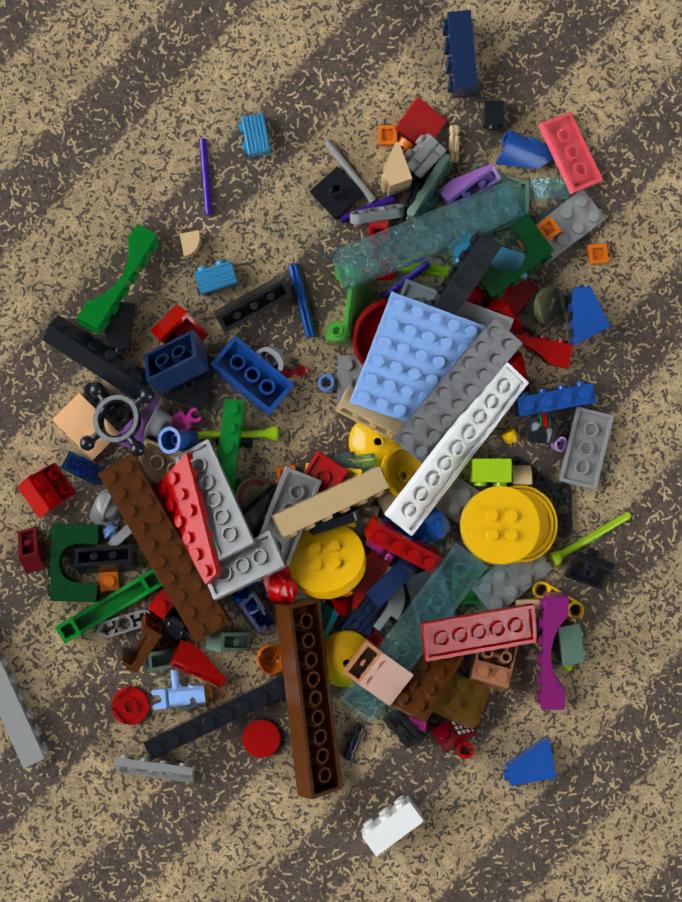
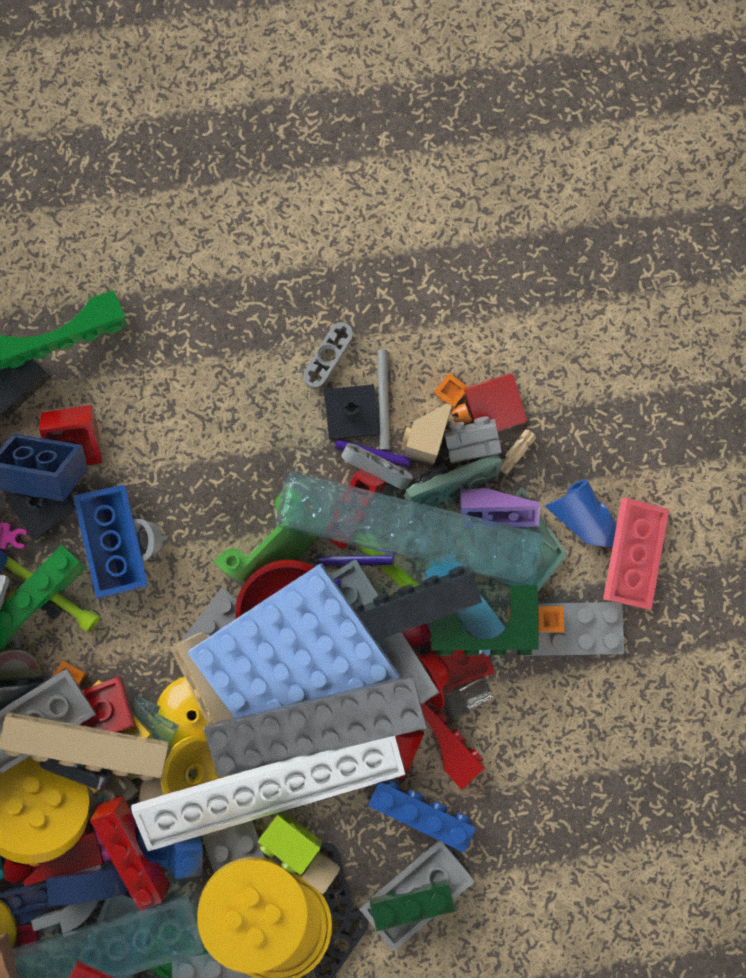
camera: 35 degrees right, 5 degrees down
(190, 243) = (155, 352): tan brick -> none
(205, 176) = (226, 294): dark purple bar -> none
(215, 277) = (154, 408): dark azure brick -> none
(252, 303) = (170, 464): black brick -> none
(255, 134) = (310, 288): dark azure brick -> none
(300, 154) = (312, 367): none -> light grey beam
(300, 371) = (155, 567): red piece -> none
(302, 300) = (228, 500): blue axle -> none
(321, 382) = (181, 606): medium blue plate -> none
(461, 54) = (594, 358): dark blue brick -> none
(493, 115) = (581, 452): black brick -> none
(510, 436) = (343, 816): yellow hinge -> none
(541, 428) = (381, 837): black helmet -> none
(548, 188) = (583, 574): clear light blue slope -> none
(549, 305) = (491, 704): olive tile -> none
(563, 444) = (385, 869): lavender hinge -> none
(584, 315) = (521, 745): blue slope -> none
(588, 454) = (401, 909): none -> dark green arch
(597, 254) = (586, 686): orange plate -> none

